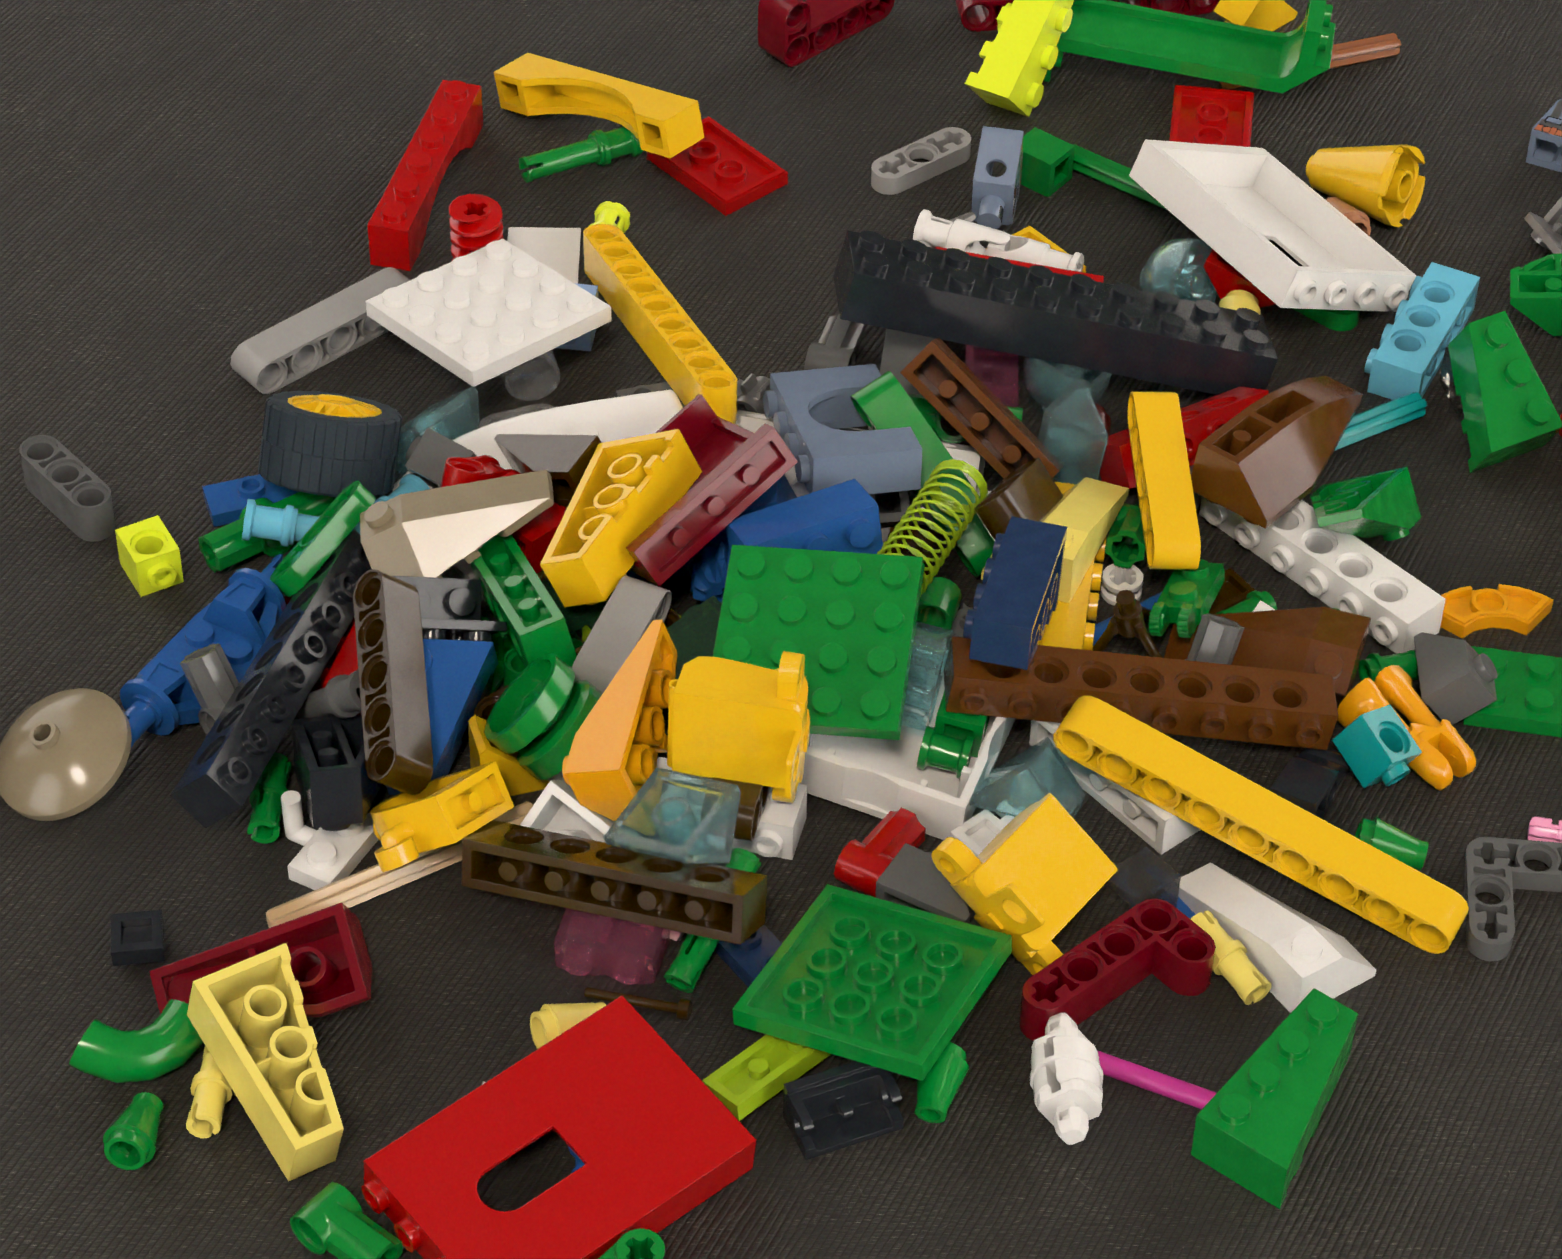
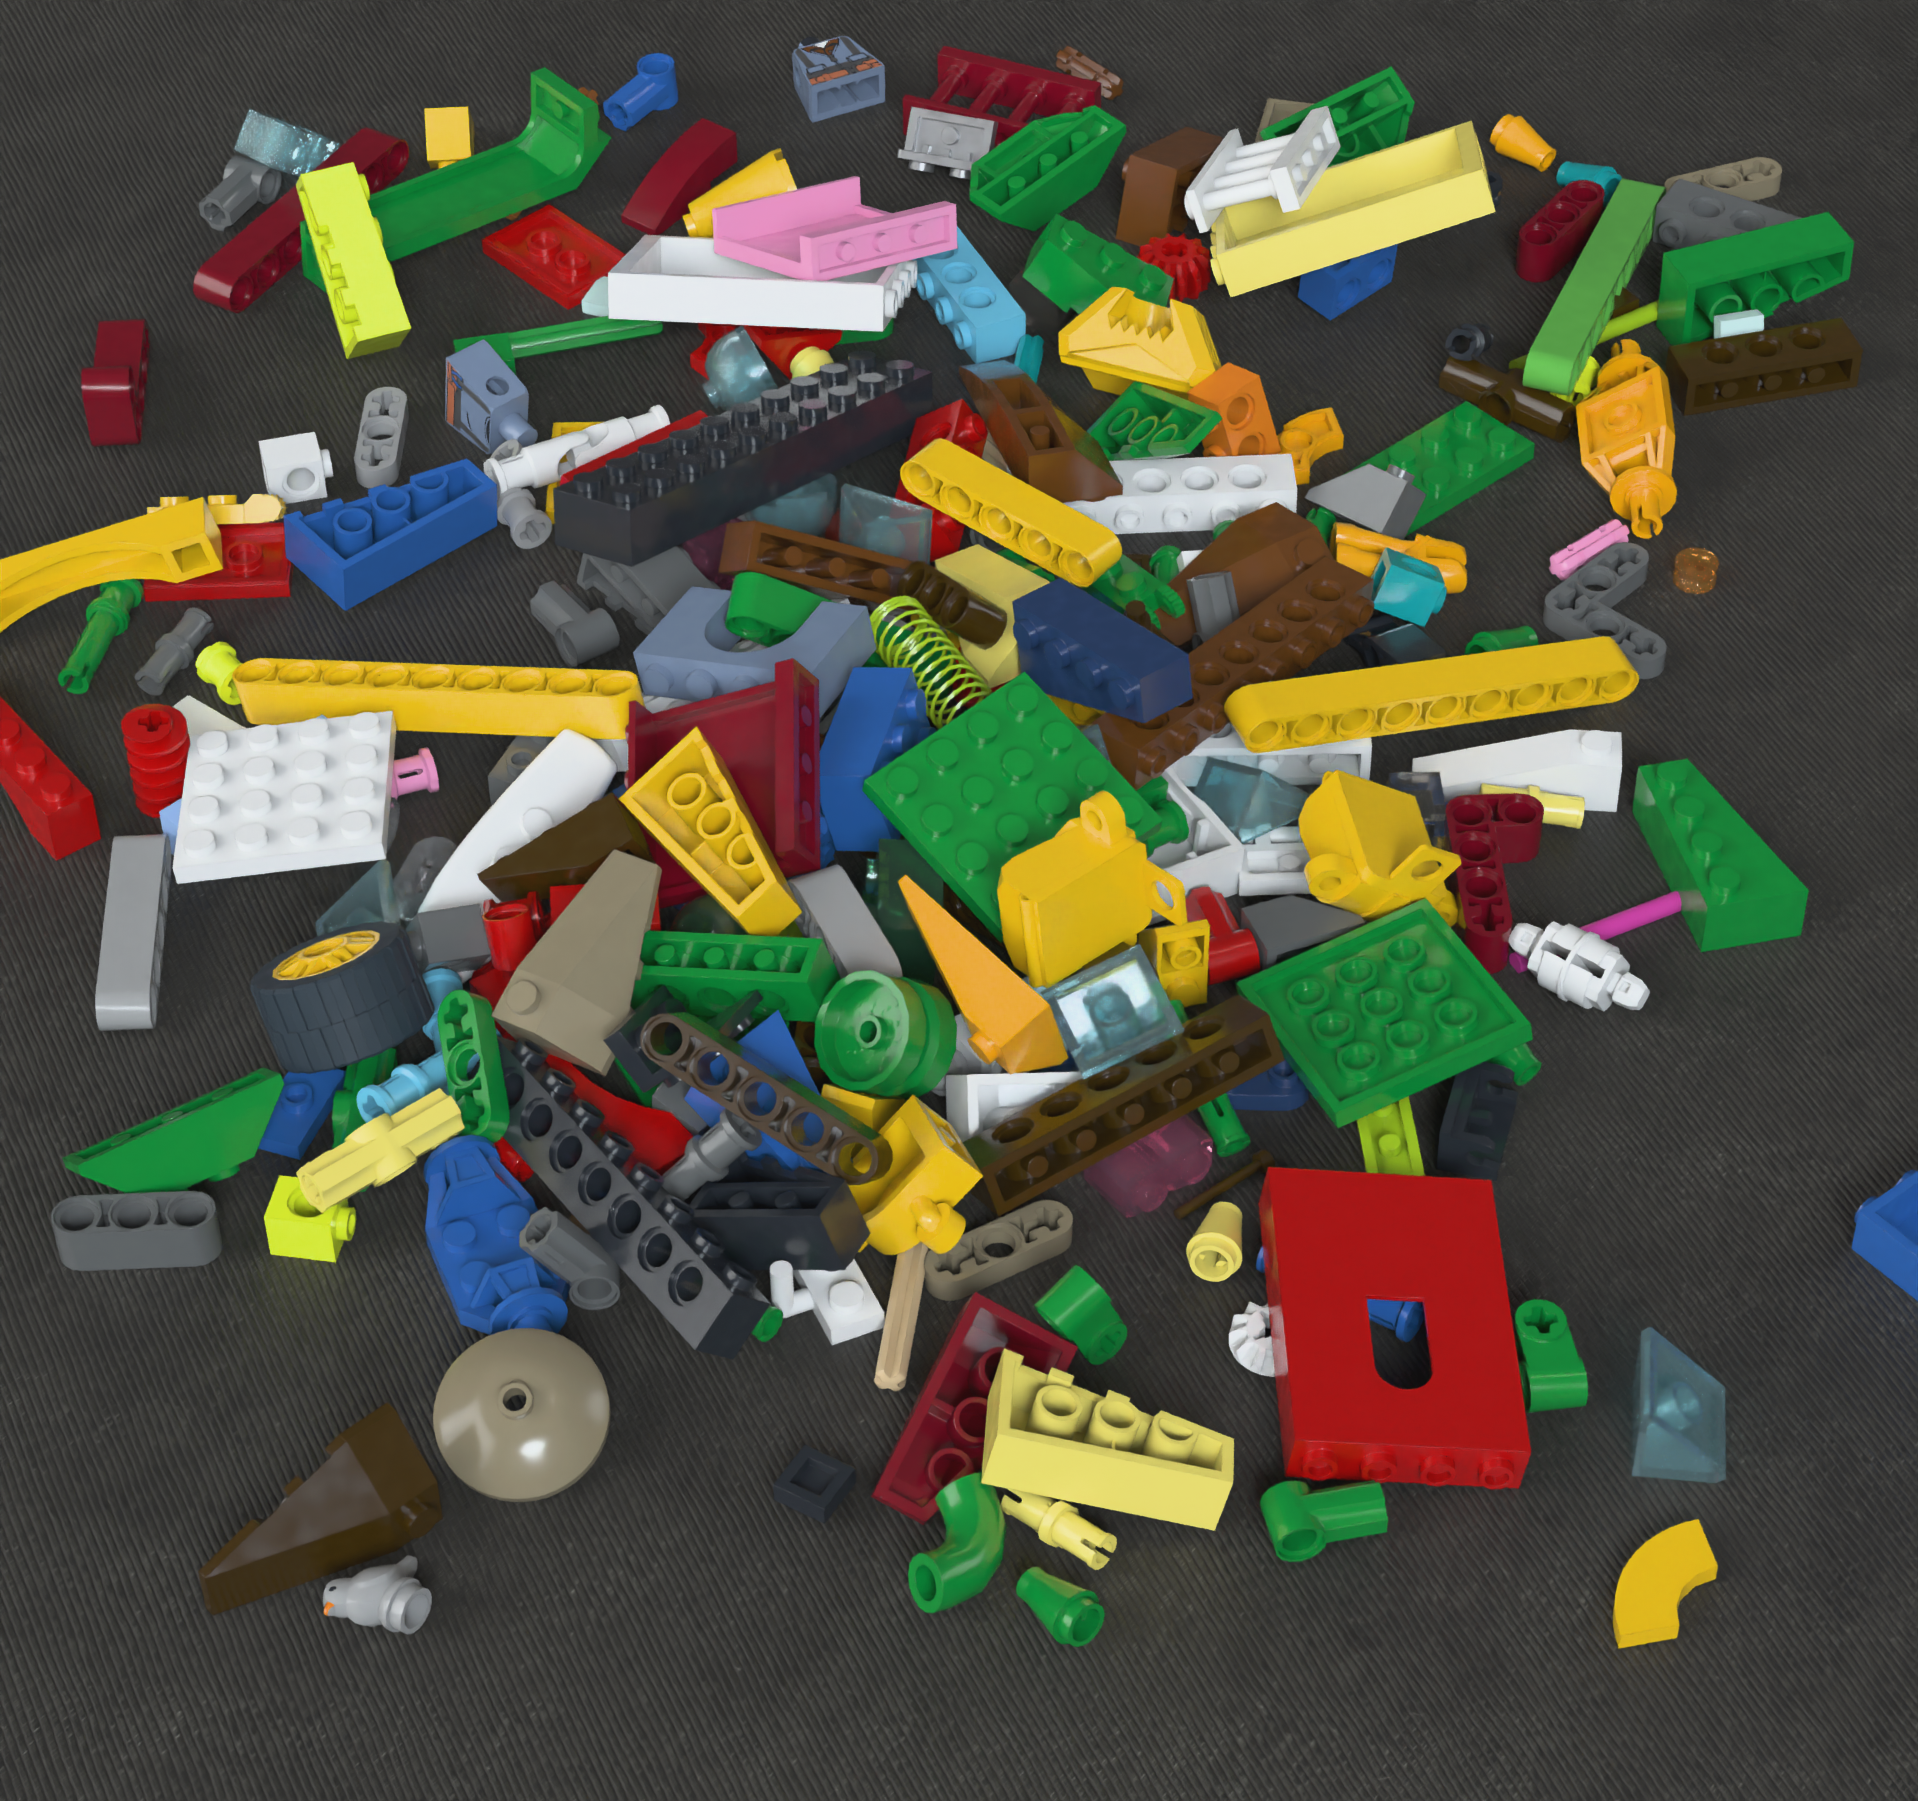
camera: 50 degrees left, 0 degrees up
(146, 458) = (187, 1142): none -> green wedge
(206, 541) = (380, 1150): none -> light yellow piece
(402, 983) = (1083, 1314): none -> green piece
(466, 928) = (1010, 1229): none -> dark tan beam
(615, 191) = (174, 651): none -> dark grey pin
(616, 365) = (426, 774): none -> bright pink bush
(752, 132) = (225, 510): none -> yellow hinge
(808, 213) = (392, 532): none -> blue wedge
(816, 838) = (1180, 959): none -> yellow slope
(833, 139) = (295, 467): none -> white brick
(1356, 221) = (828, 232): none -> bright pink panel
(1365, 125) = (681, 177): none -> dark red slope
(1436, 546) = (1245, 413): none -> orange brick
(1440, 448) = (1139, 341): none -> yellow helmet
(1441, 64) = (649, 90): none -> blue piece

